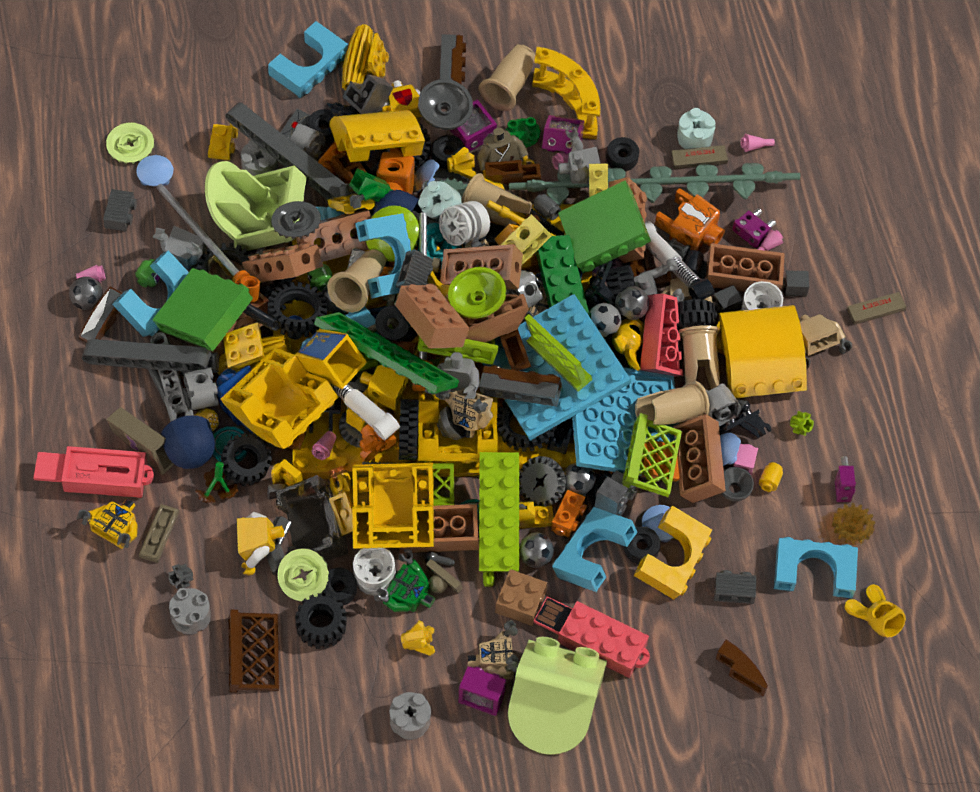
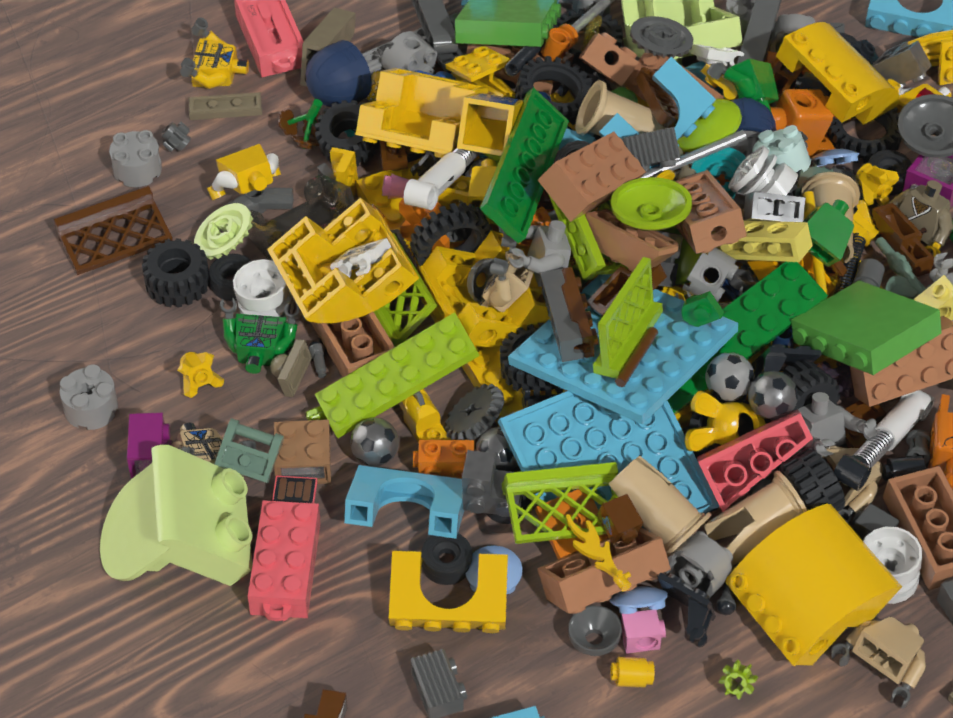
camera: 70 degrees right, 10 degrees down
(321, 197) = (714, 55): none -> white plate
(353, 248) = (657, 99): none -> reddish brown beam
(395, 488) = (361, 257): none -> white plate
(501, 227) = (773, 207): none -> brick
(522, 206) = (829, 231): none -> green torso
(525, 630) = (246, 459): none -> sand green plate
(563, 308) = (701, 309): none -> green plate
(595, 375) = (636, 357): none -> reddish brown bar
(680, 430) = (620, 519): none -> reddish brown brick
(699, 454) = (593, 550): none -> yellow piece

